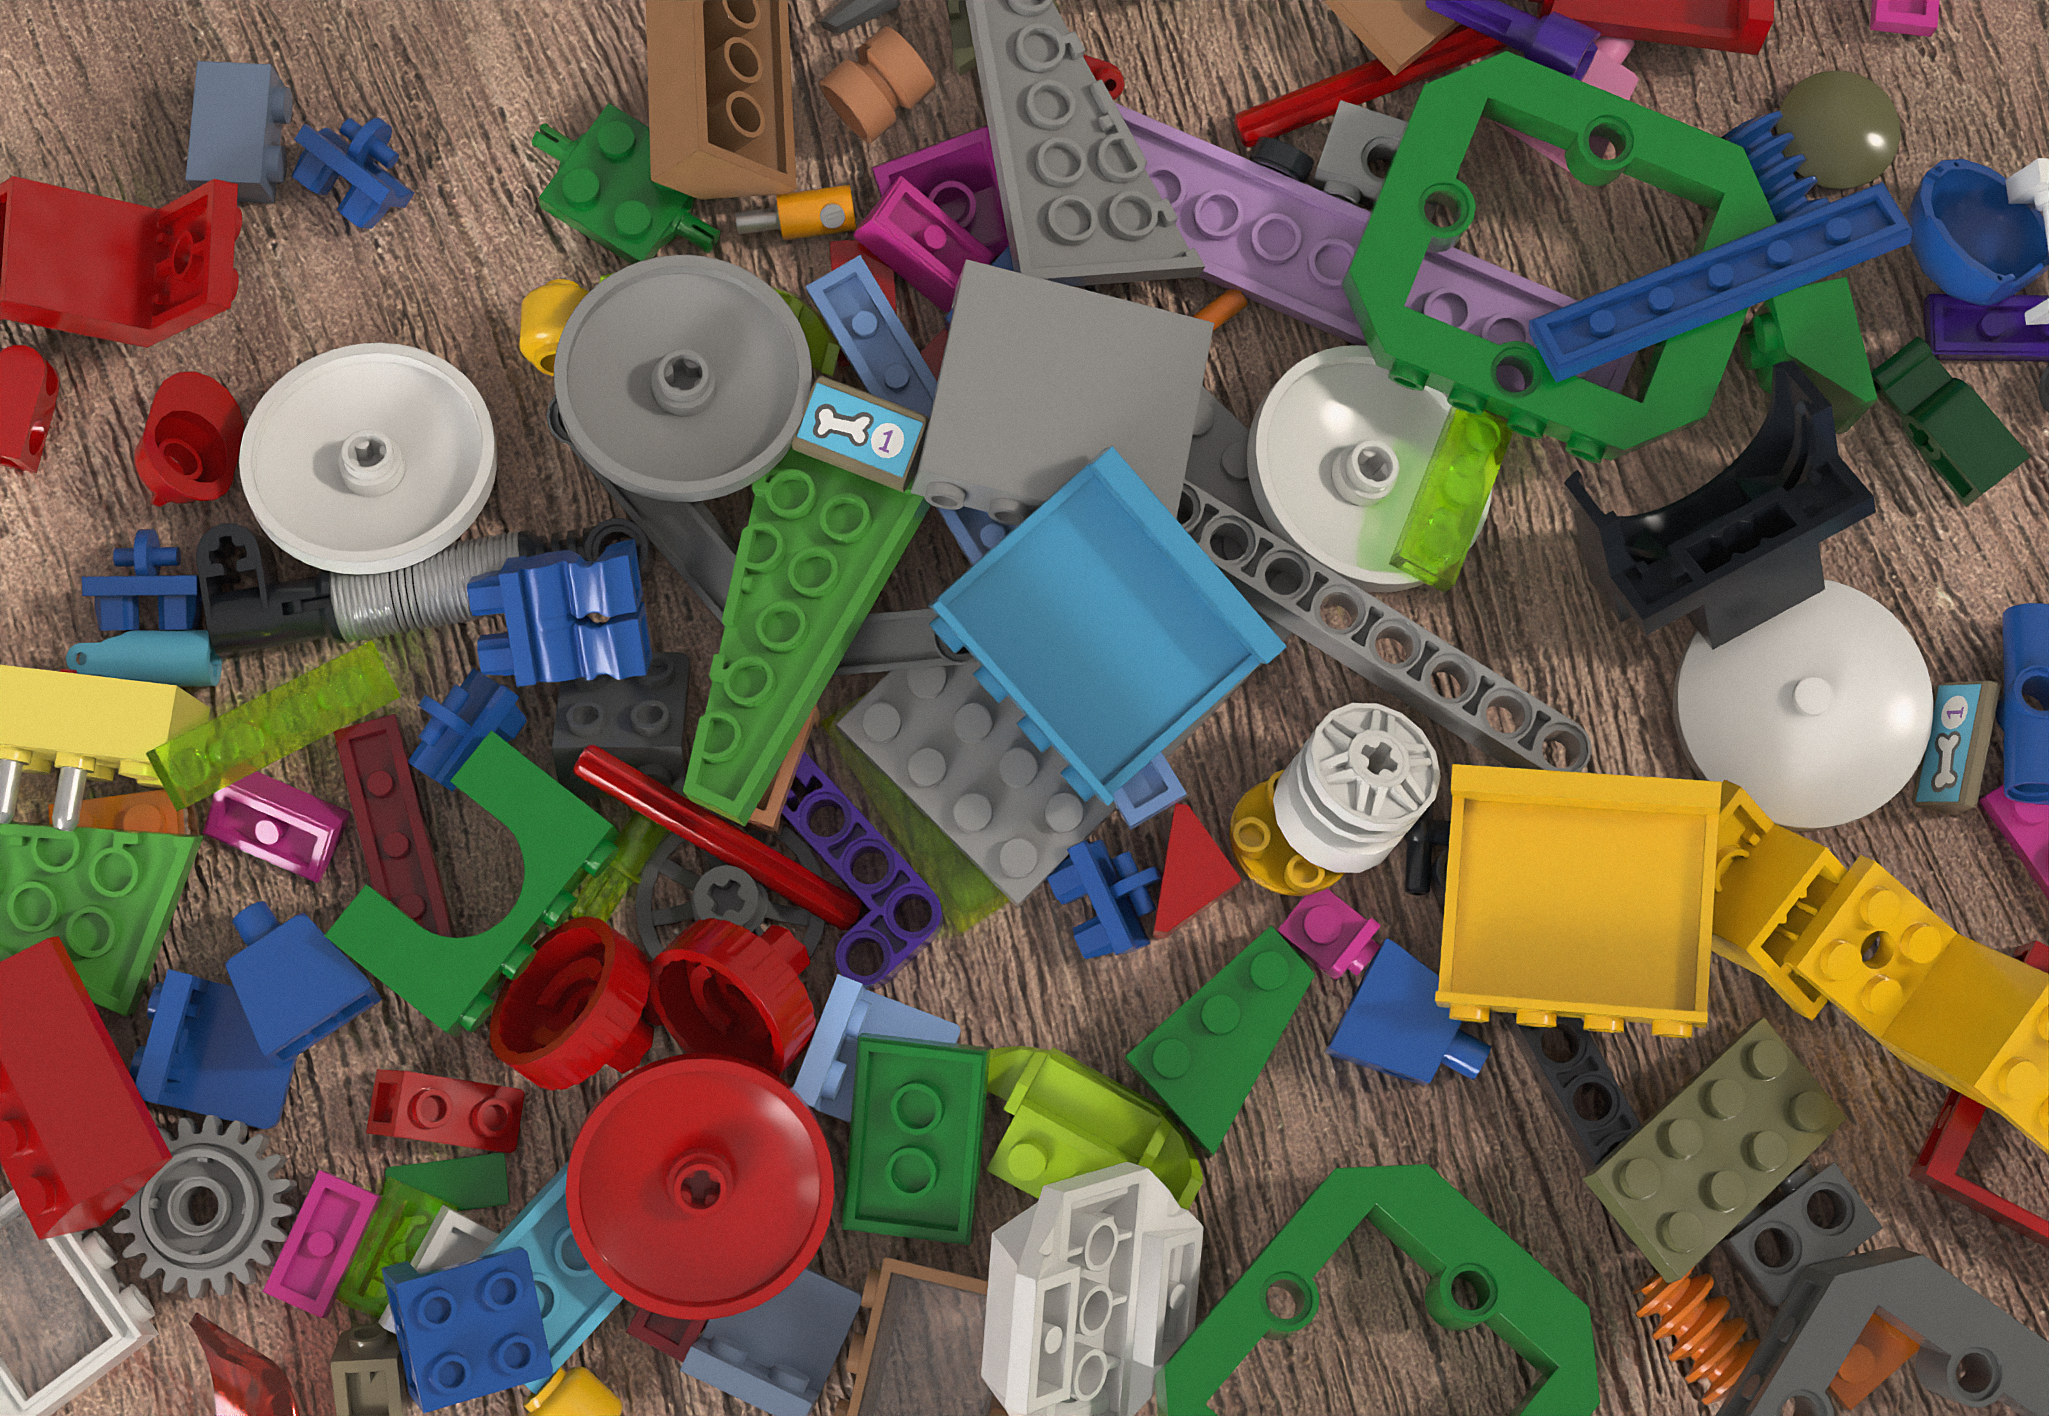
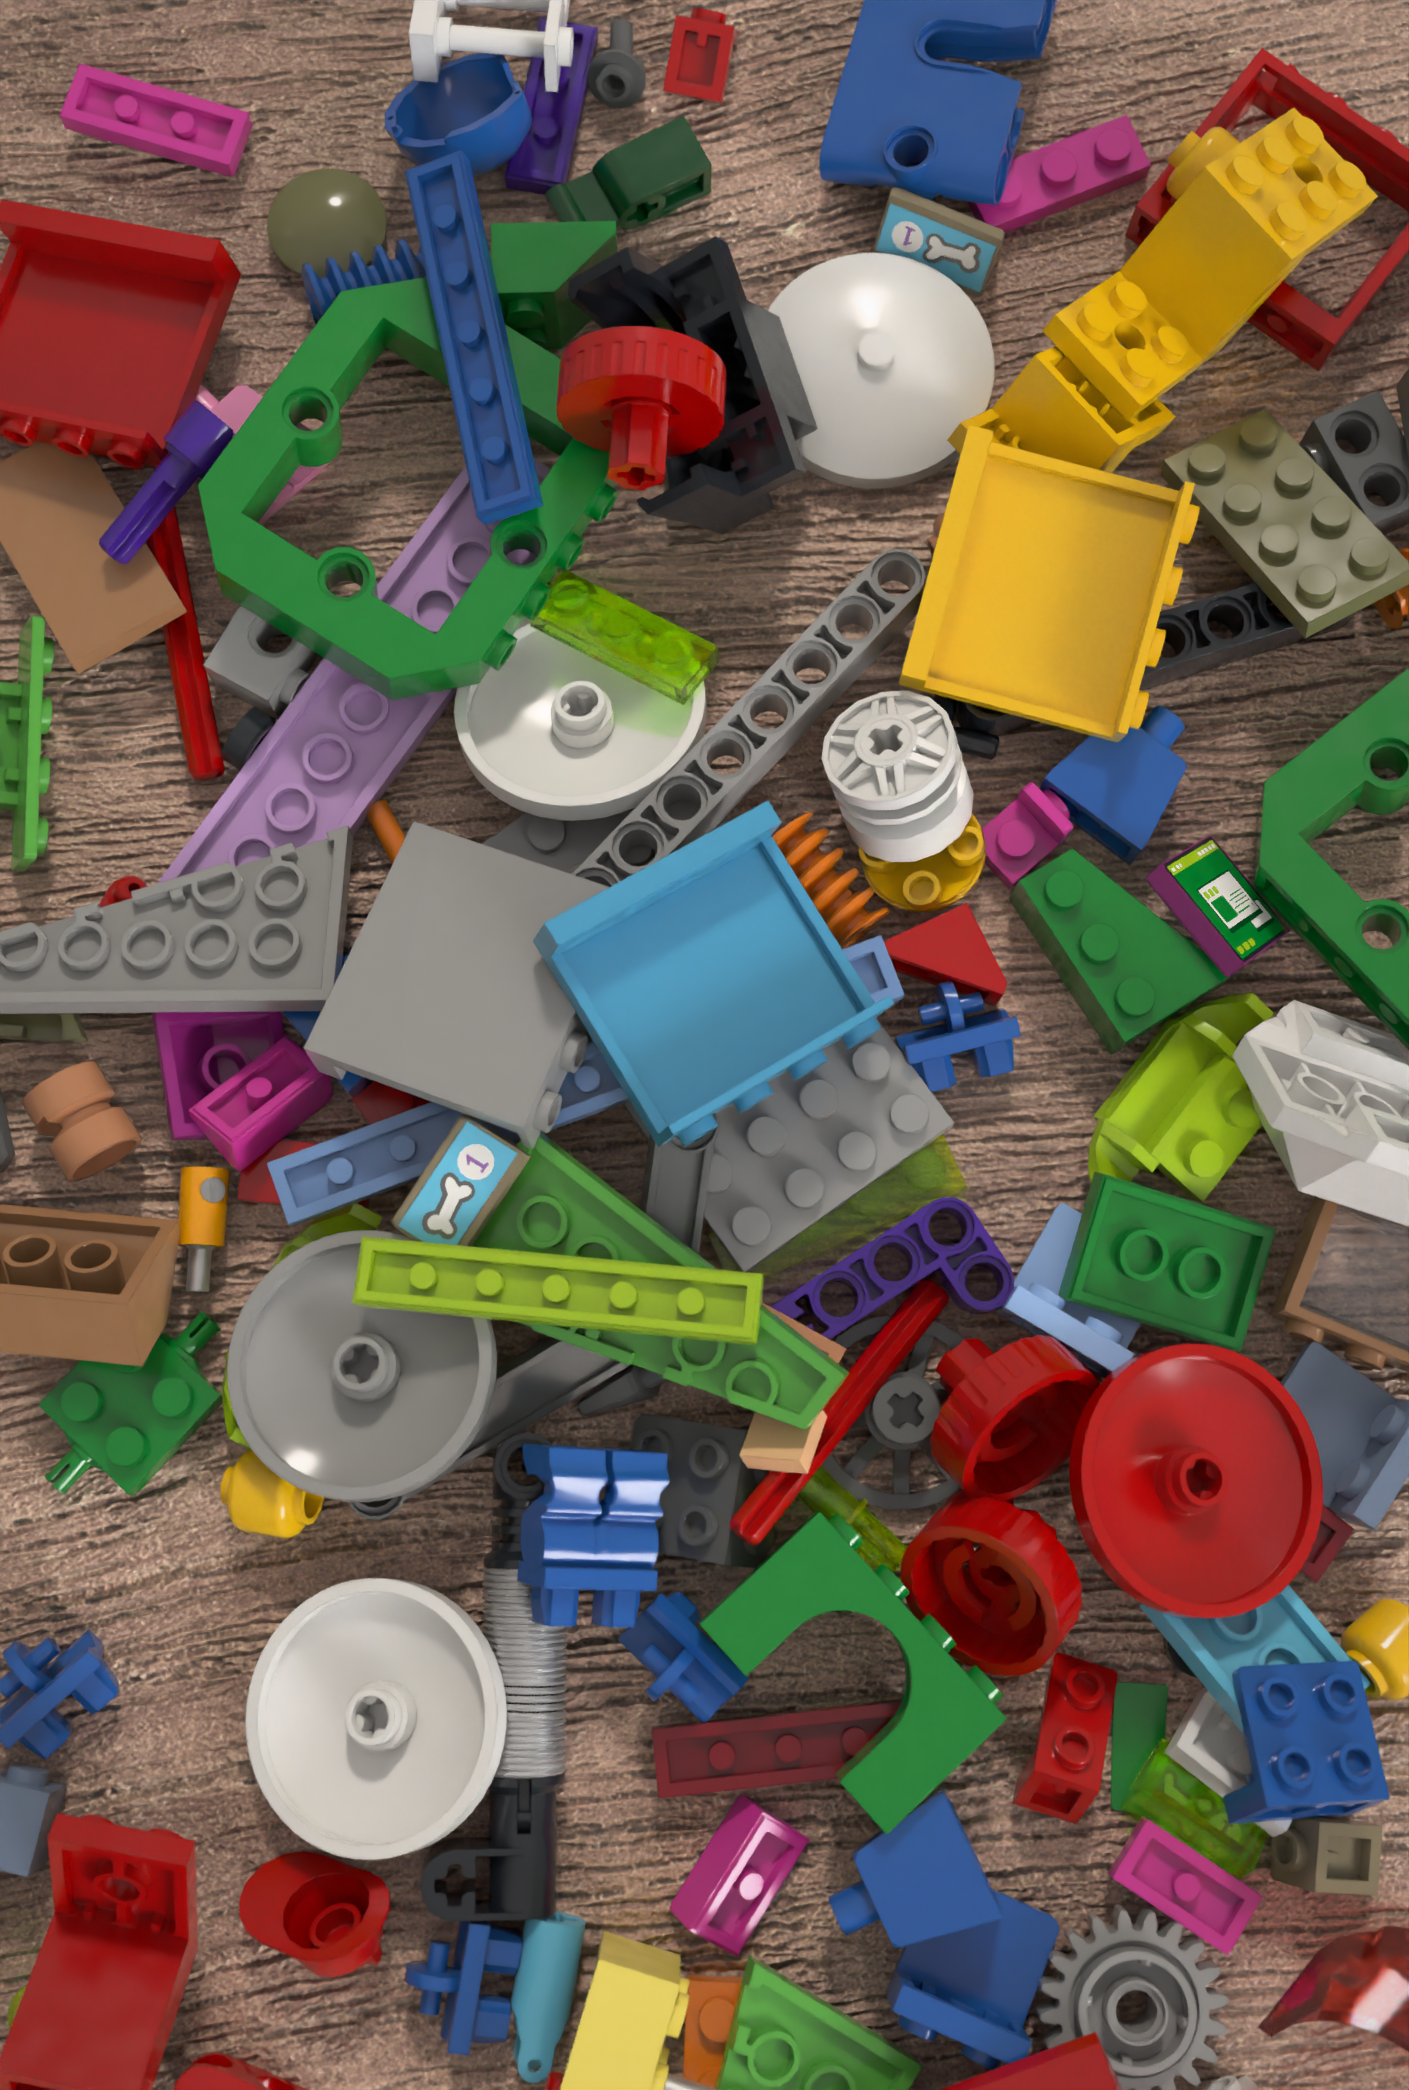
camera: 85 degrees left, 0 degrees up
(272, 725) = (652, 1862): clear neon green plate -> none
(665, 779) = (781, 1446): none -> light nougat tile
(703, 626) = (622, 1389): none -> dark grey bar
(777, 541) = (559, 1290): none -> lime tile
(1235, 734) = (828, 890): none -> orange piece
(1289, 1136) = (1217, 905): none -> tile
(1675, 451) = (641, 398): none -> red piece

